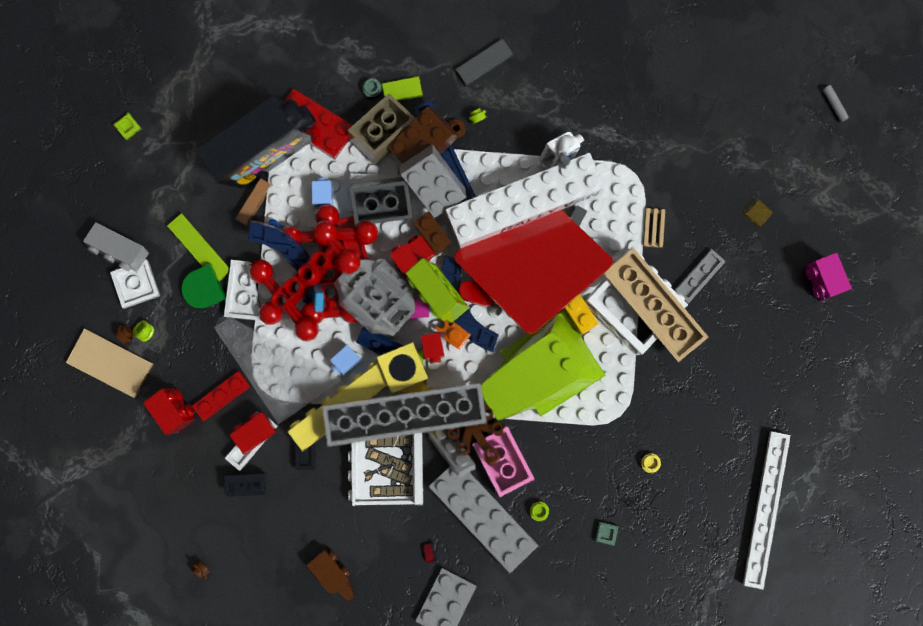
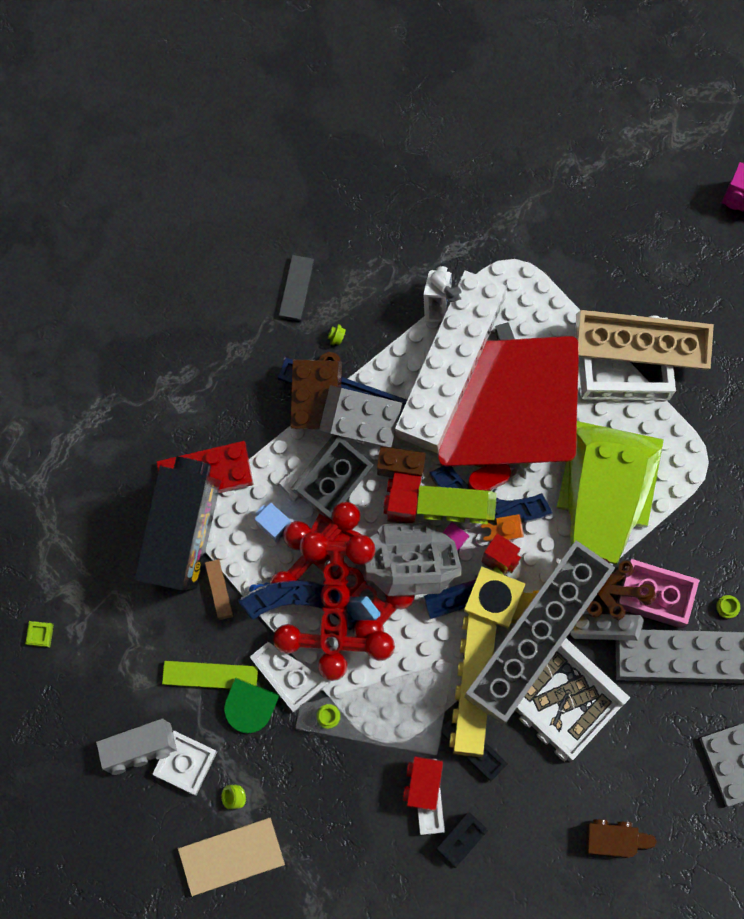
camera: 40 degrees left, 10 degrees down
(124, 334) = (219, 817): reddish brown plate -> none
(169, 410) = (331, 840): red piece -> none
(221, 396) = (360, 784): red plate -> none
(238, 339) = (328, 716): none -> lime plate
(344, 360) = (437, 642): light blue brick -> none
(371, 88) = (223, 397): sand green plate -> none
(380, 128) = (268, 420): dark tan brick -> none
(403, 89) = (250, 374): lime tile -> none
(429, 552) = (676, 735): dark red piece -> none
(580, 315) = (595, 410): yellow brick -> none
(654, 226) = (584, 286): tan tile -> none
(700, 275) = (649, 287): light grey tile -> none
(759, 213) = (643, 196): clear yellow tile -> none
(835, 103) = (610, 57): light grey piece -> none

